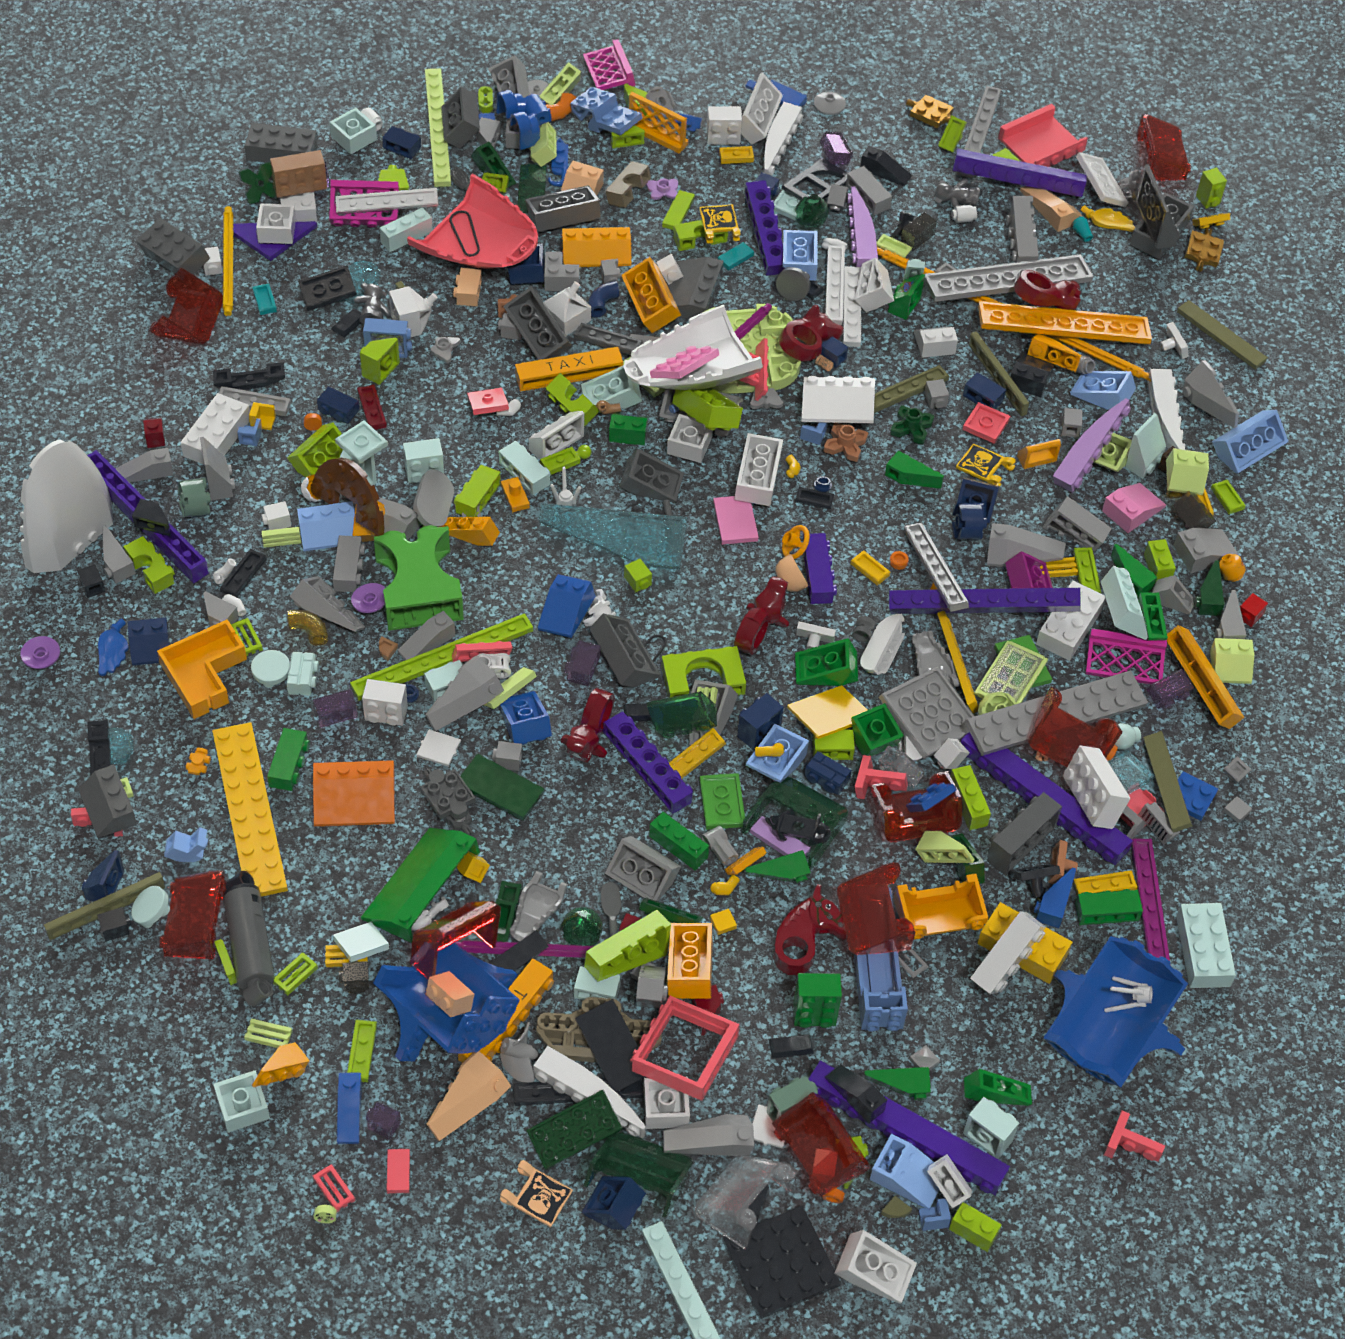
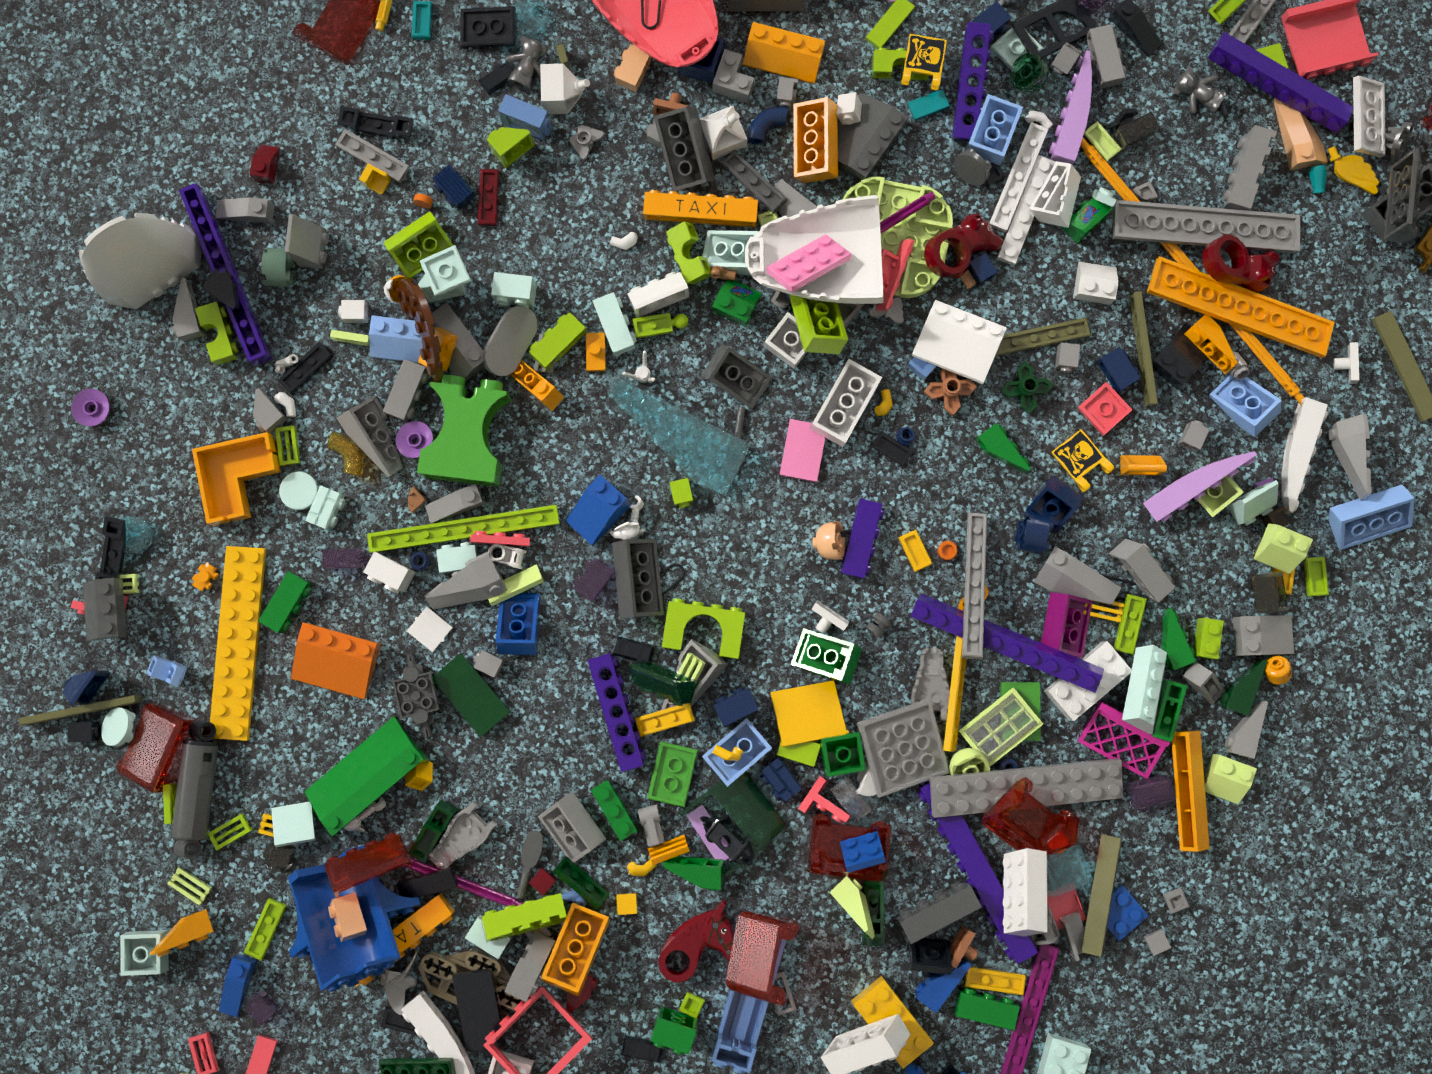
camera: 25 degrees right, 30 degrees up
(91, 581) = (158, 335): black brick -> none
(112, 648) = (159, 420): blue animal -> none
(146, 639) = (193, 425): dark blue slope -> none
(218, 425) = (324, 184): white brick -> none
(250, 434) = (358, 197): medium blue panel -> none
(472, 1091) = (345, 1010): light nougat wedge -> none
(488, 401) = (604, 227): coral plate -> none
(582, 926) = (495, 872): clear green cylinder -> none
(584, 738) = (562, 673): dark red animal -> none
(761, 614) = (790, 579): dark red animal -> none
(791, 540) = (847, 502): light orange piece -> none
(883, 645) = (889, 651): white brick -> none
(943, 907) = (826, 966): light orange windscreen -> none
(951, 754) = (906, 799): white brick -> none
(964, 213) = (1196, 120): white brick -> none
(974, 805) = (904, 851): lime arch -> none
(1128, 737) = (1087, 831): light aqua piece -> none
(1132, 506) = (1212, 559): bright pink slope -> none
(1253, 609) = (1276, 725): red brick -> none

